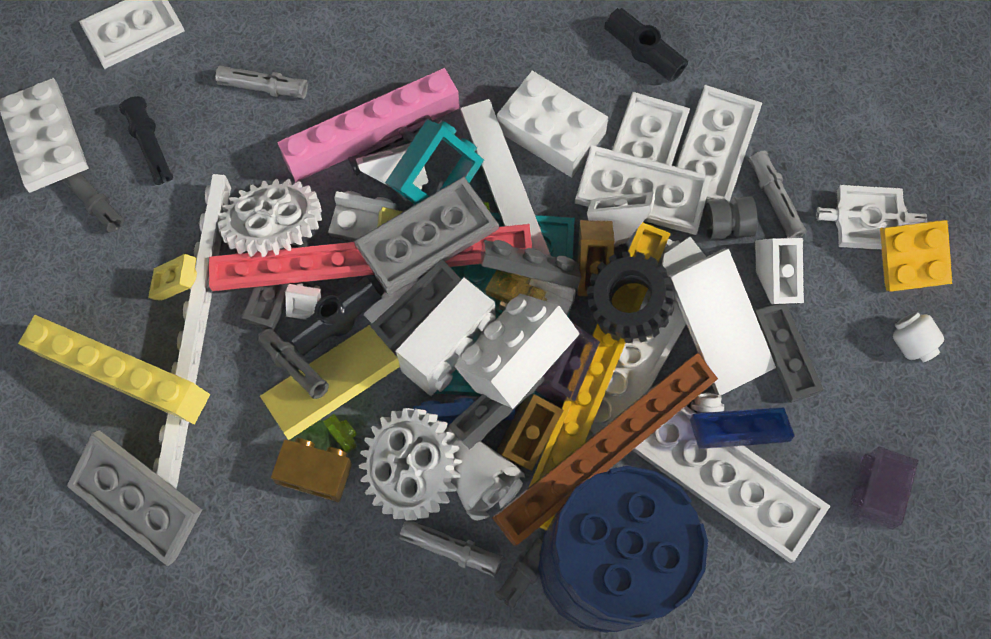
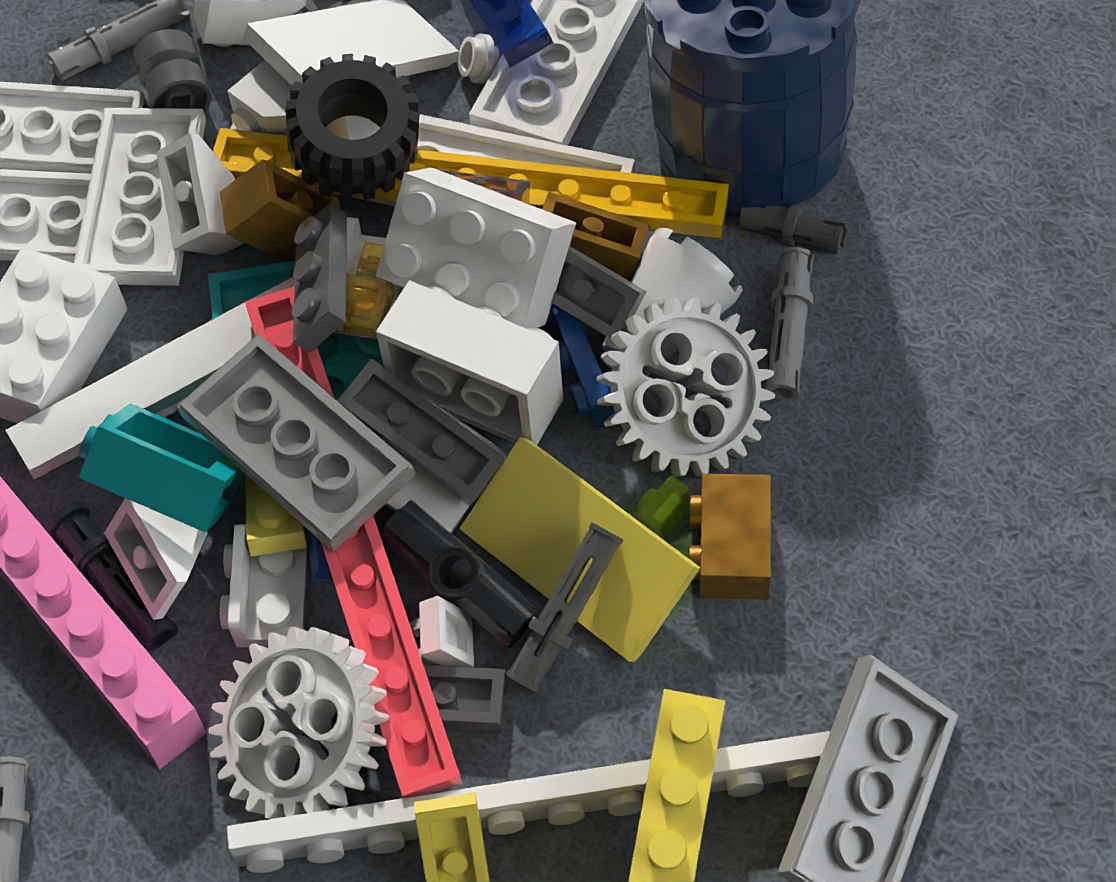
camera: 100 degrees left, 10 degrees down
(604, 448) = (594, 135): dark orange plate -> none

